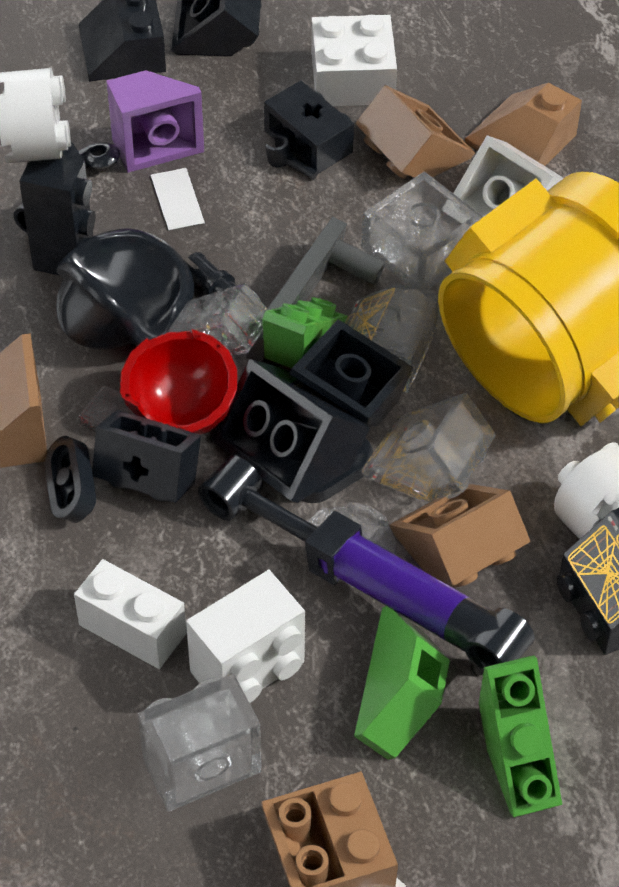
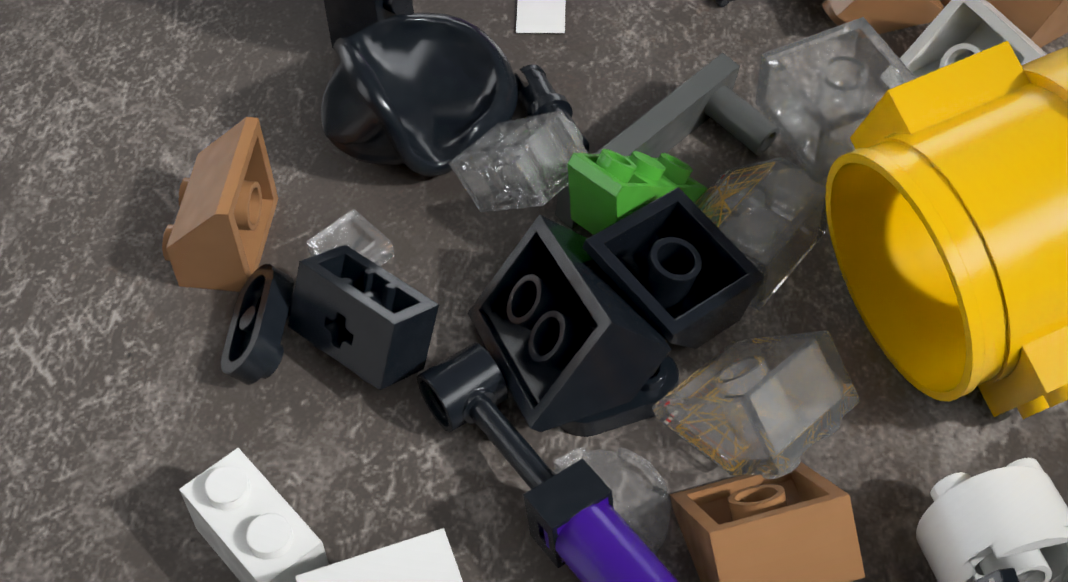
camera: 20 degrees right, 0 degrees up
(180, 380) = (441, 226): red cylinder -> none

